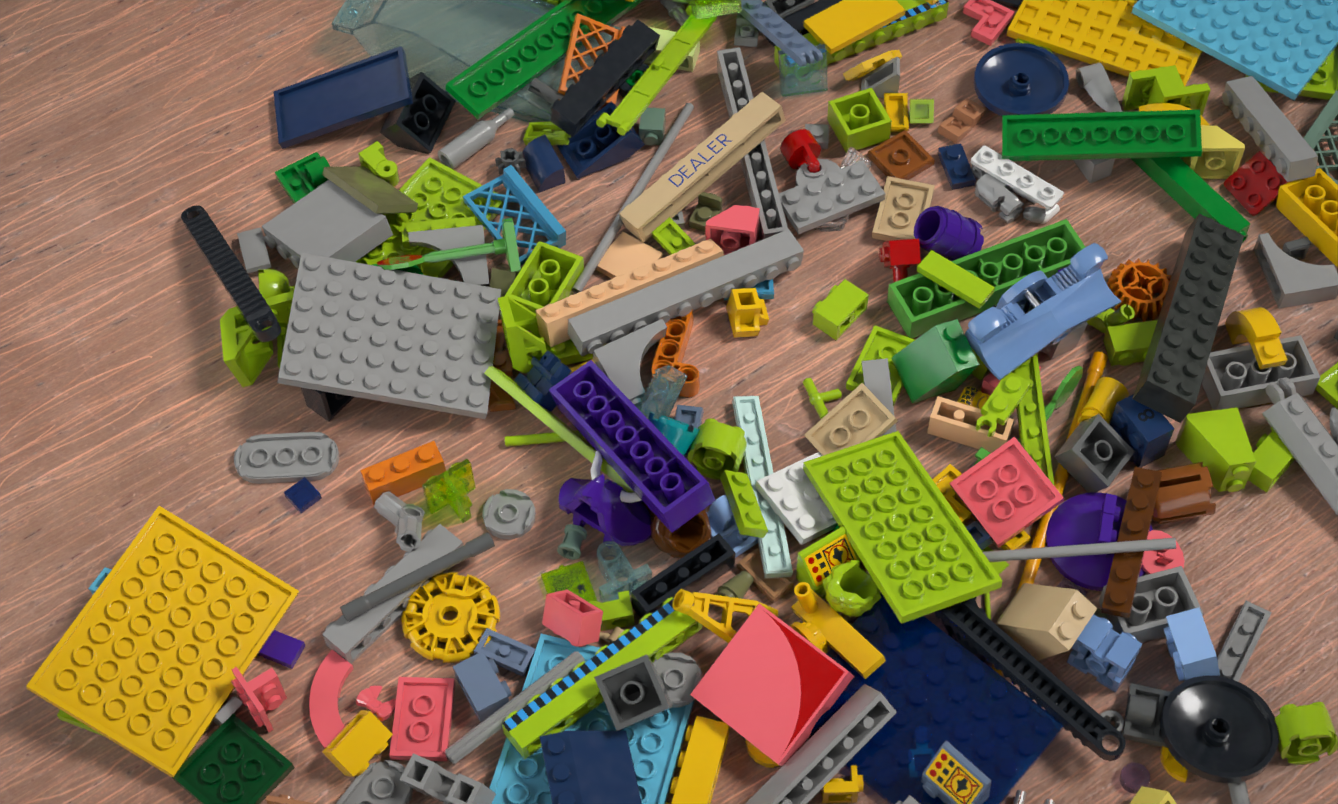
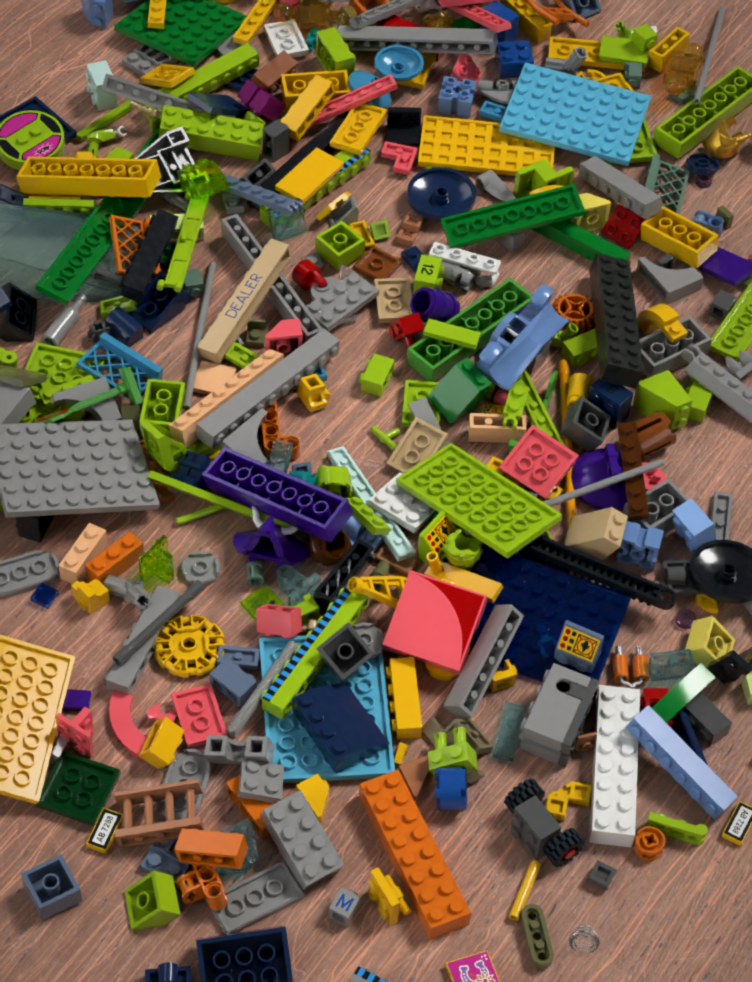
camera: 25 degrees left, 5 degrees down
(356, 512) = (90, 595): none -> yellow brick
(374, 446) = (87, 546): none -> light nougat brick
(958, 189) = (429, 273): none -> lime brick

